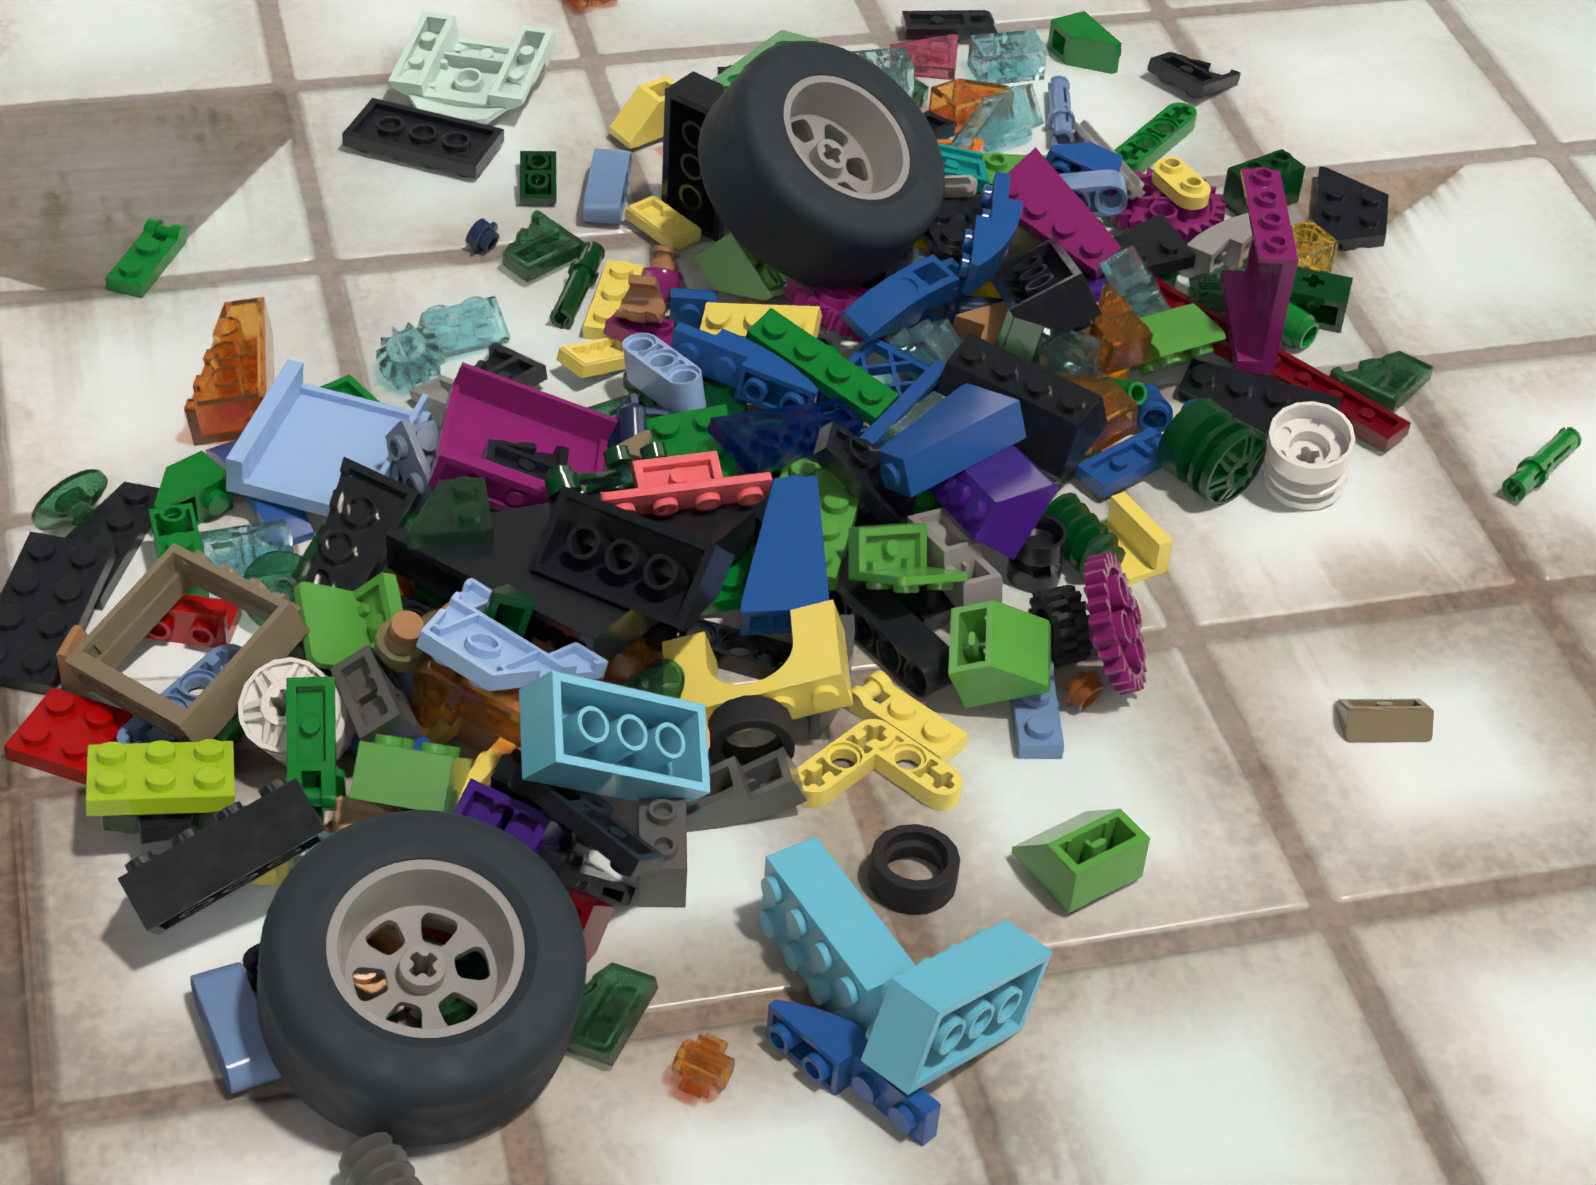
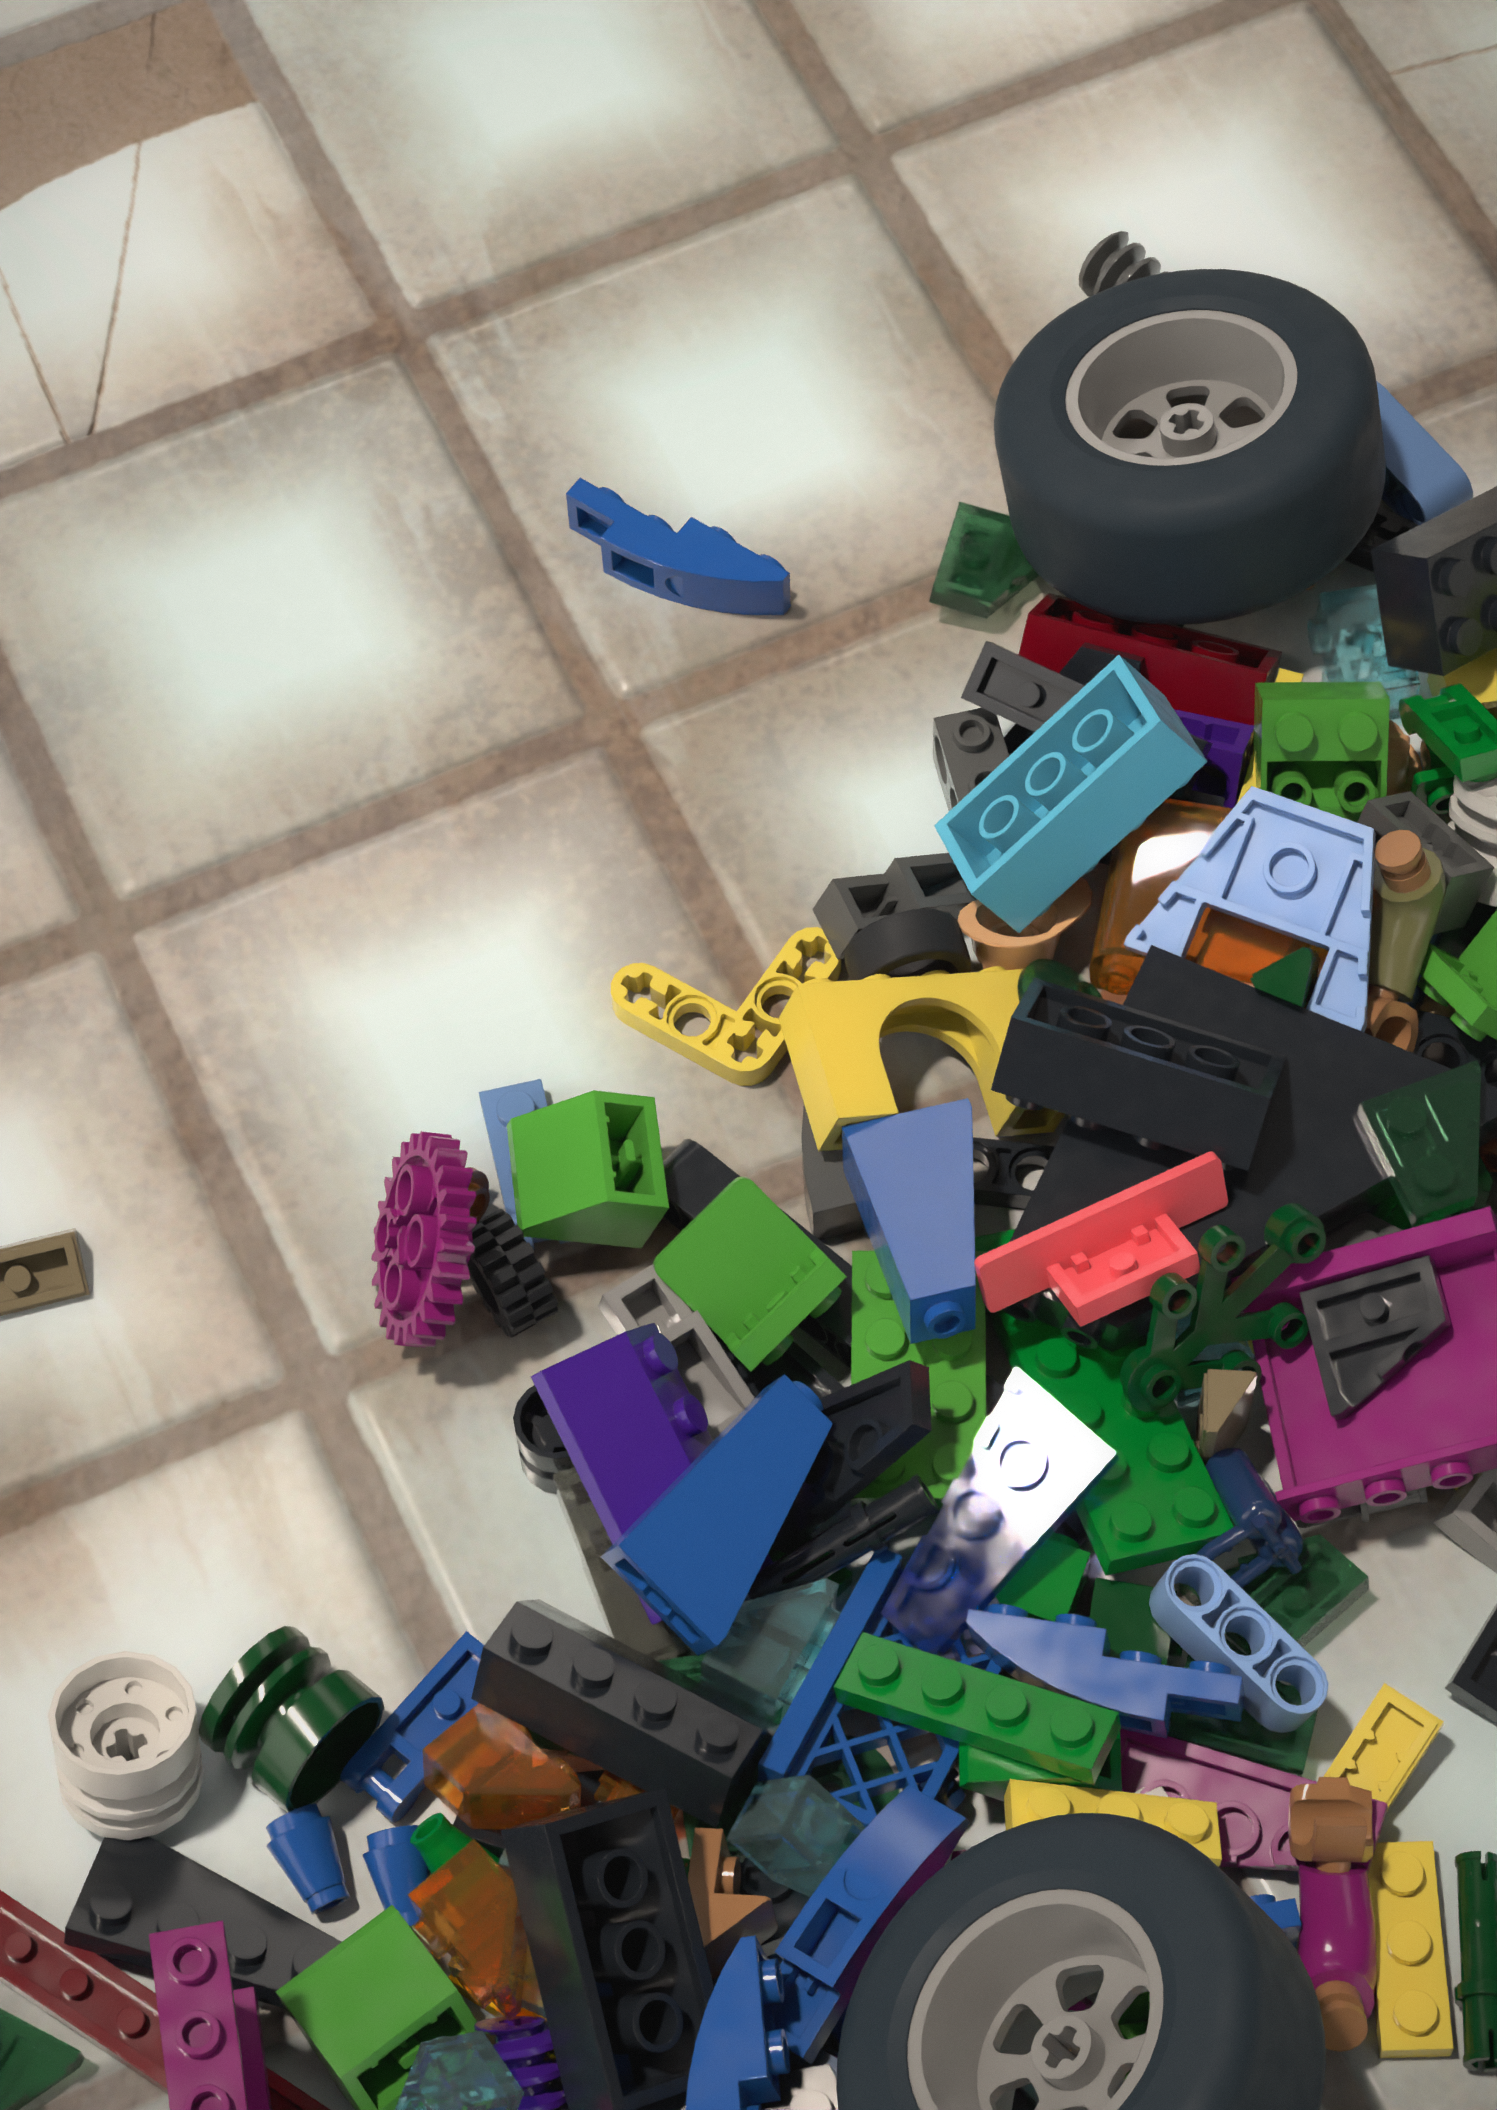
camera: 175 degrees right, 20 degrees up
(703, 1065) = (848, 512): clear orange gear -> none
(828, 931) = (726, 667): medium azure brick -> none
(907, 716) = (709, 1103): light yellow plate -> none
(909, 894) = (645, 803): black tyre -> none
(955, 1005) = (563, 571): medium azure brick -> none
(1084, 531) = (493, 1501): dark green piece -> none
(1086, 856) = (437, 898): bright green slope -> none
(1141, 538) = (422, 1533): light yellow panel -> none

